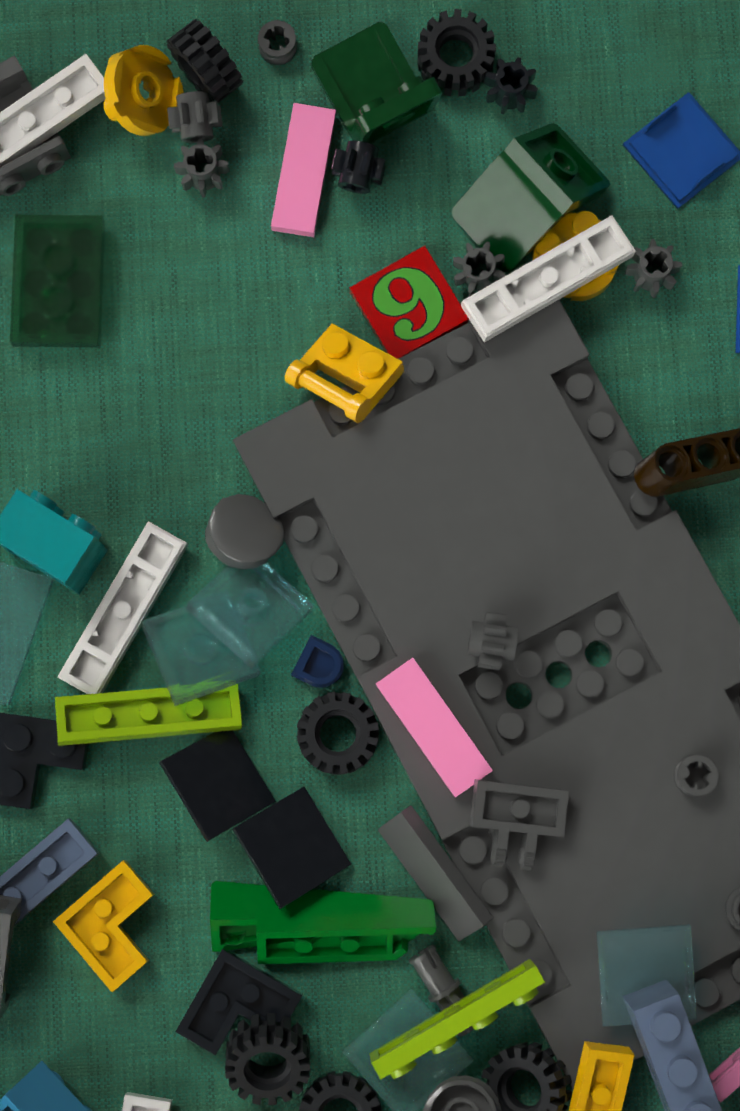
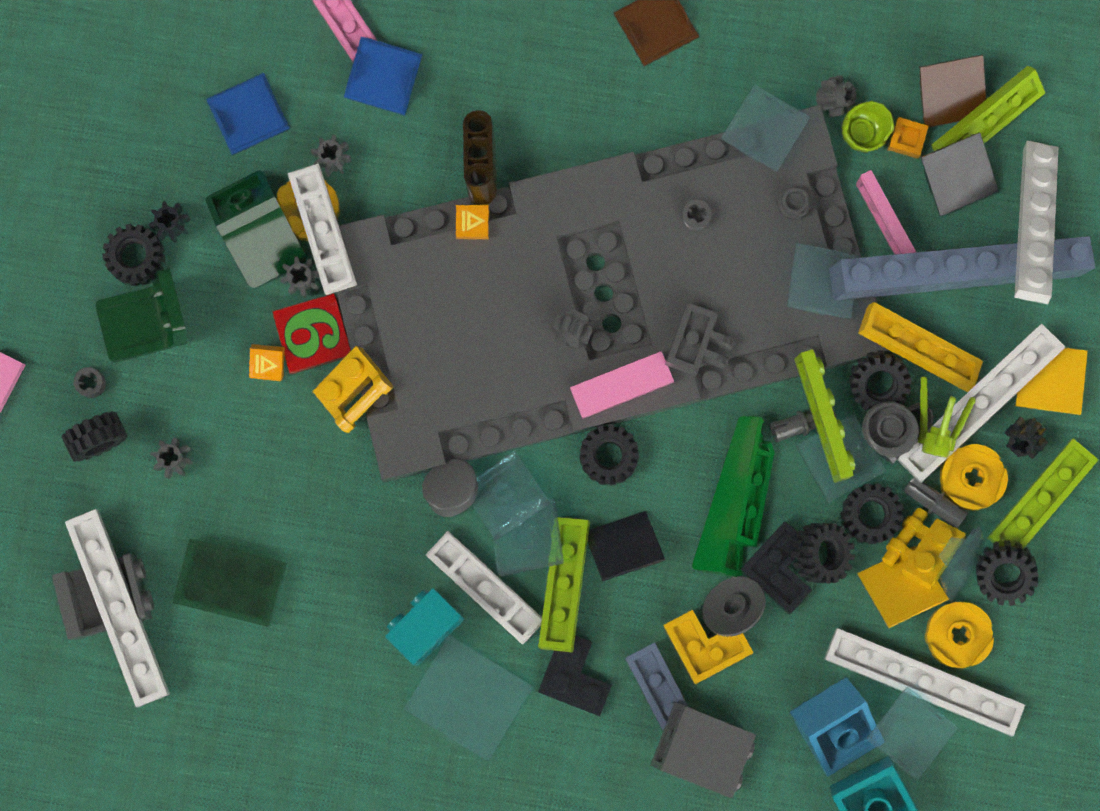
camera: 75 degrees left, 0 degrees up
(122, 91) = (88, 492): yellow plate -> none
(178, 938) = (729, 597): none -> dark grey dish
(194, 116) = (133, 453): dark grey gear -> none
(291, 847) = (681, 504): black piece -> none
(303, 170) = (191, 385): bright pink tile -> none
(319, 664) = (556, 457): dark blue tile -> none
(355, 255) = (266, 362): none -> light orange tile
(358, 167) = (202, 344): black gear -> none
(435, 873) = (721, 410): dark grey tile -> none
(608, 473) = (472, 221): none -> light orange tile

